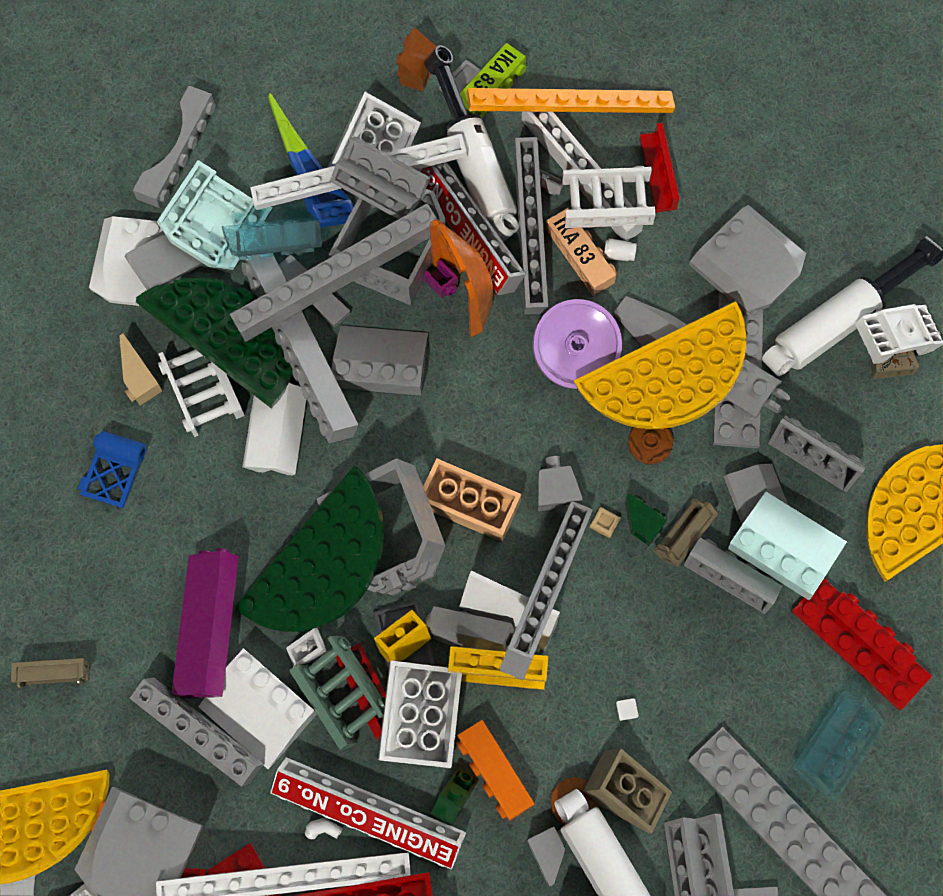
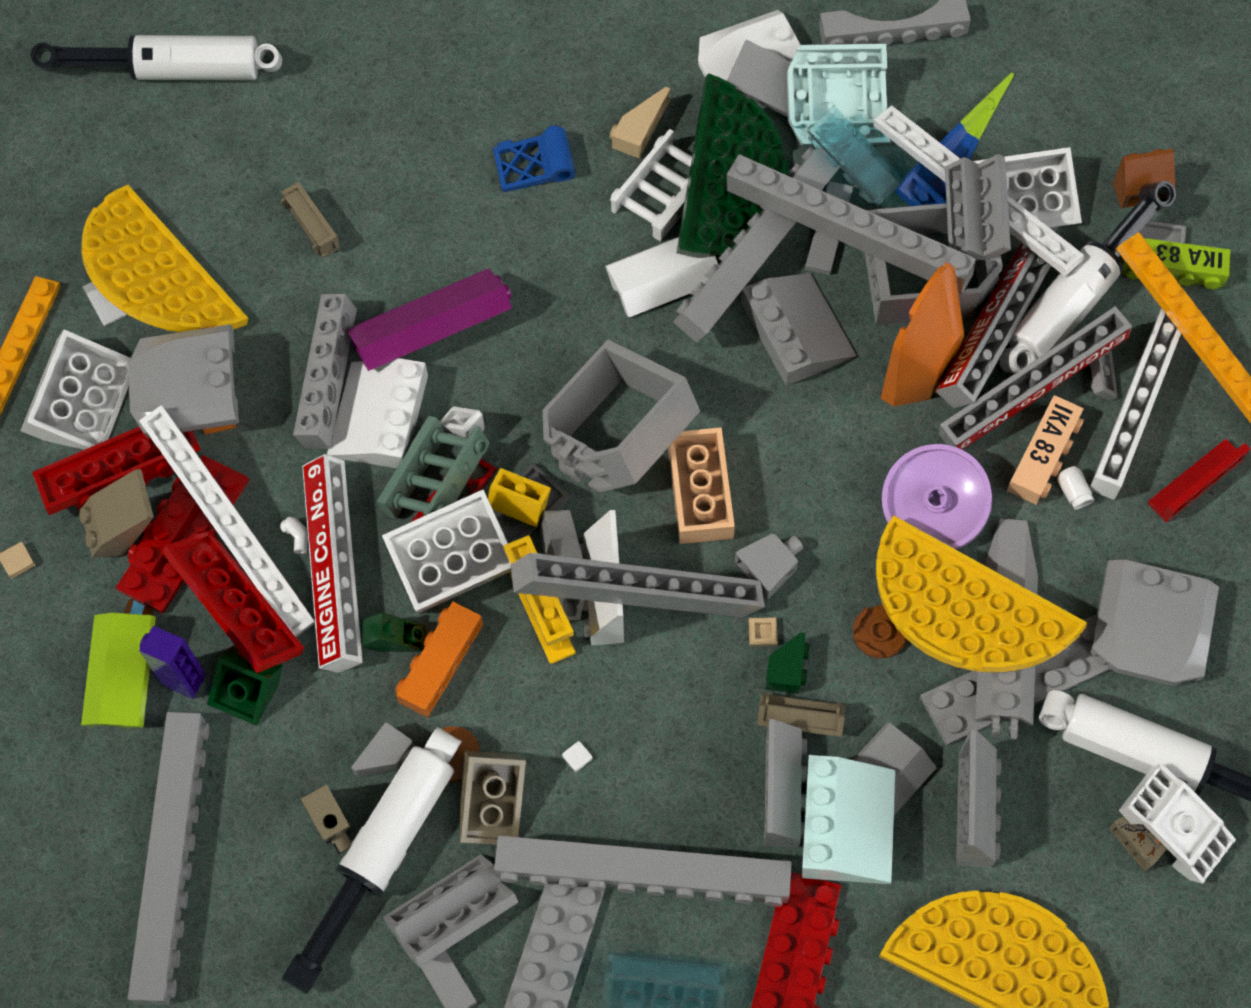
camera: 60 degrees right, 5 degrees down
(324, 564) = (548, 383): dark green plate -> none
(606, 217) = (1105, 456): white fence -> none
(745, 710) = (643, 869): none -> light grey brick

